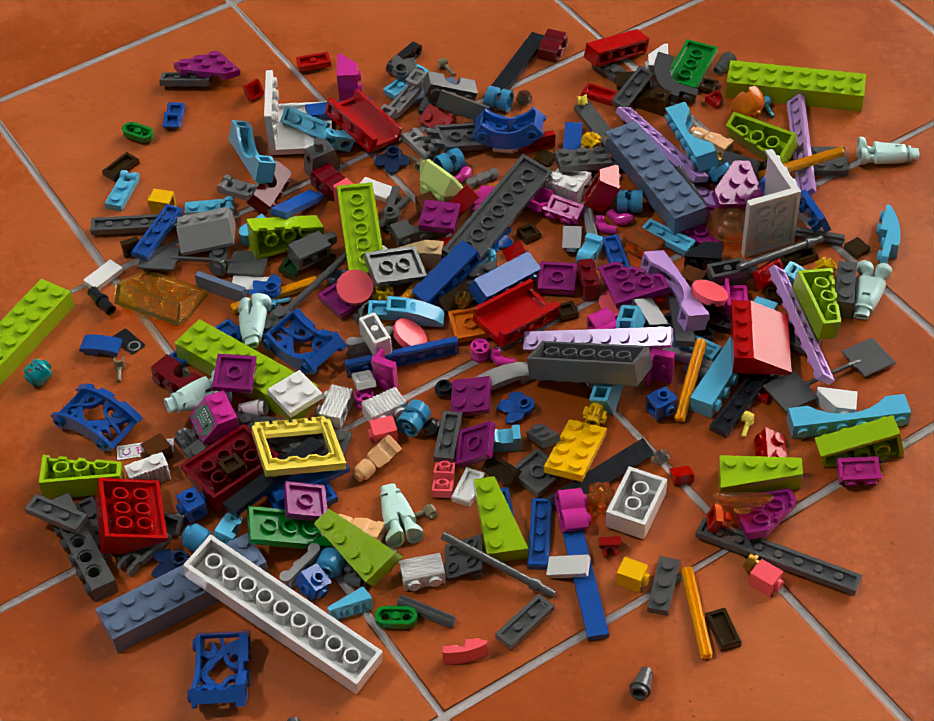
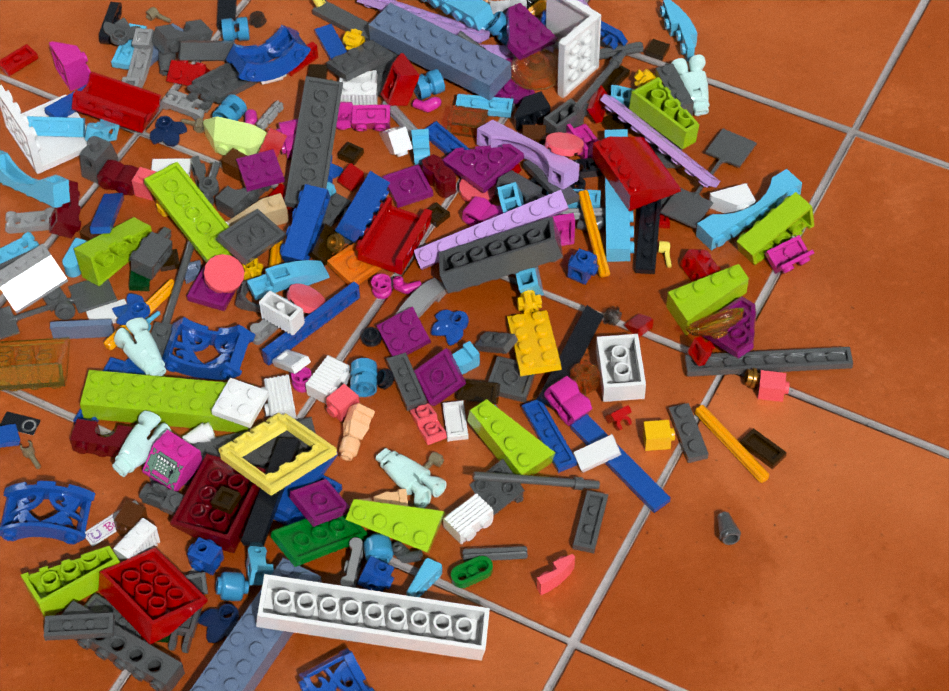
camera: 30 degrees left, 5 degrees up
(234, 373) = (168, 408): magenta plate -> none
(384, 371) = (309, 344): dark pink bracket -> none
(603, 226) = (418, 119): dark pink arm -> none

